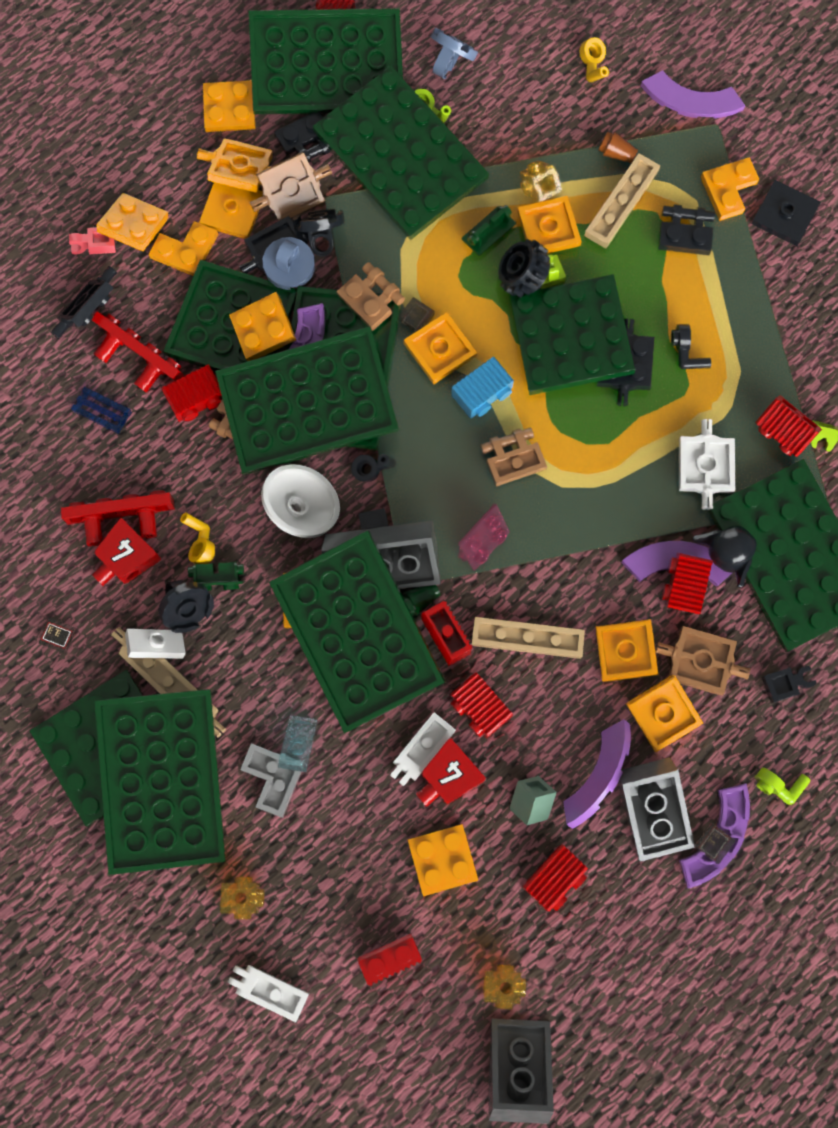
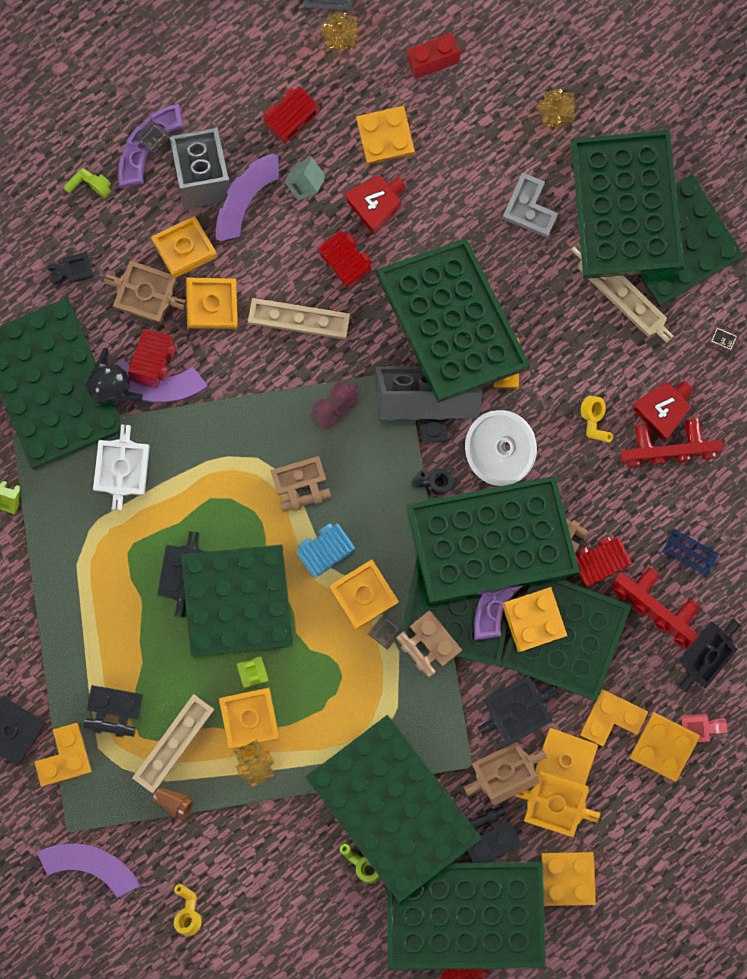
camera: 170 degrees left, 5 degrees up
(154, 644) = (633, 323): white plate -> none
(185, 605) = (608, 357): black tile -> none
(227, 576) = (567, 382): dark green hinge -> none
(269, 992) = (534, 36): white hinge -> none
(288, 263) = (508, 689): sand blue tile -> none
(298, 743) = (507, 233): clear light blue plate -> none
(319, 224) = (477, 726): black tile -> none
(420, 597) = (397, 356): dark green cone -> none
(422, 748) = (398, 226): white hinge -> none
(446, 633) = (371, 321): red brick -> none
(450, 52) = (333, 927): sand blue tile -> none
(489, 229) = (309, 718): dark green hinge -> none
(524, 268) = (278, 666): black gear -> none
(682, 340) = (131, 592): black plate -> none
(787, 426) = (41, 498): red brick -> none

